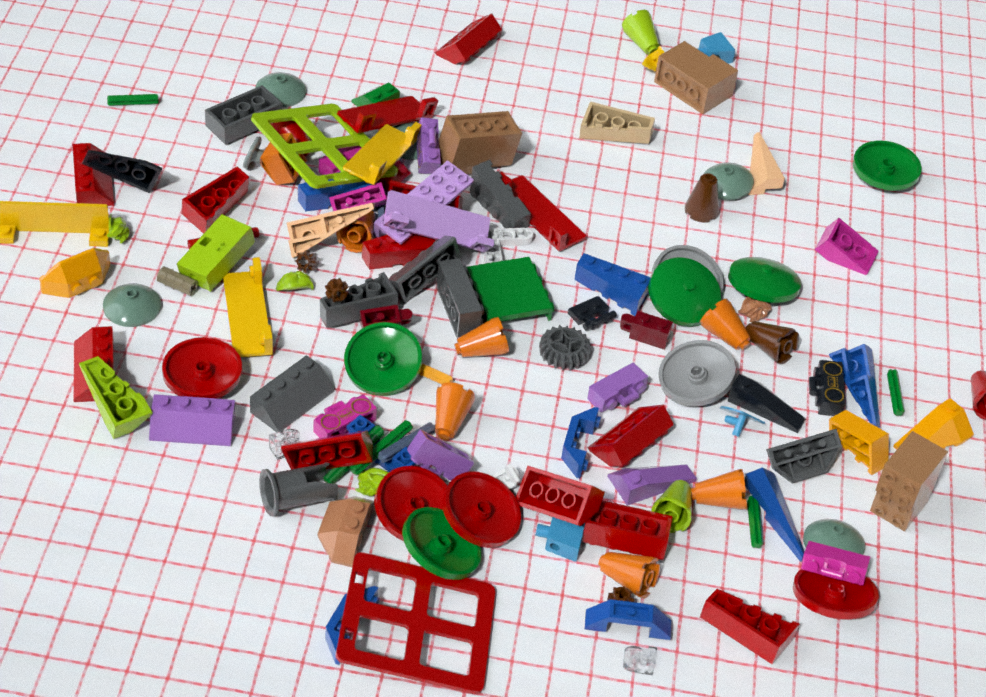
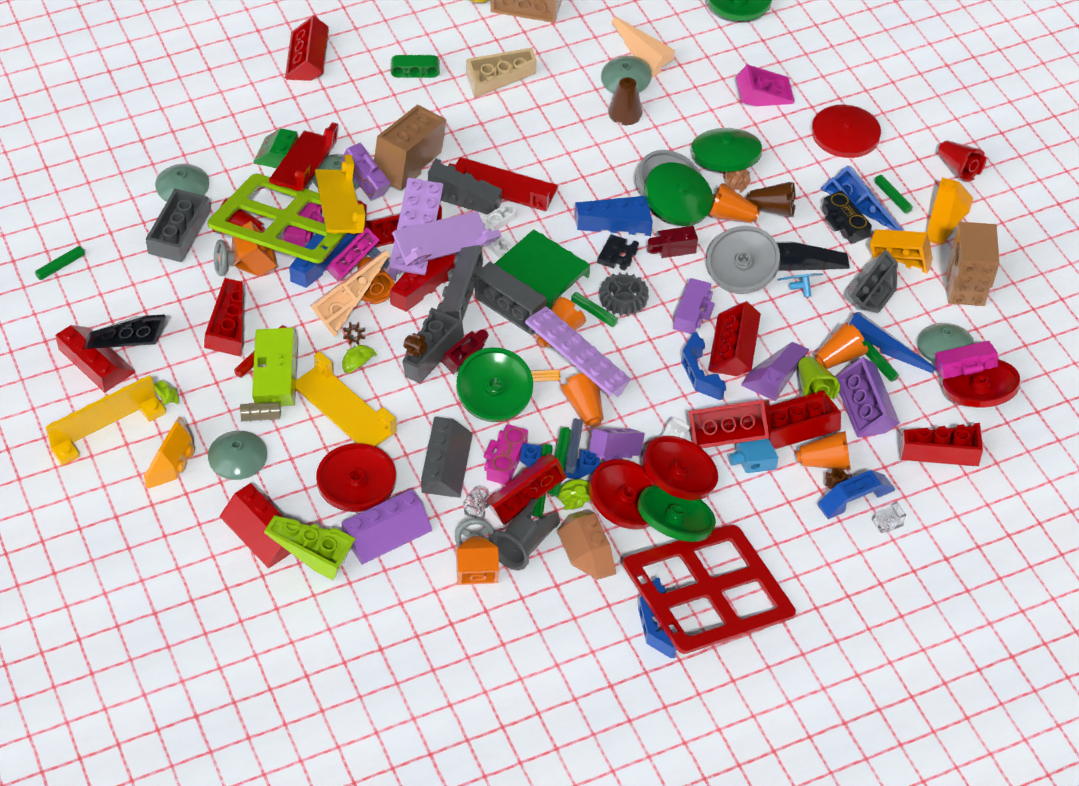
camera: 30 degrees left, 5 degrees up
(234, 482) = (476, 557): none -> orange piece
(471, 367) = (579, 351): none -> lavender bracket
(529, 347) = (594, 309): none -> green axle
(548, 91) = (415, 66): none -> green beam
(712, 547) = (866, 399): none -> medium lavender slope
(896, 319) = (846, 131): none -> red dish

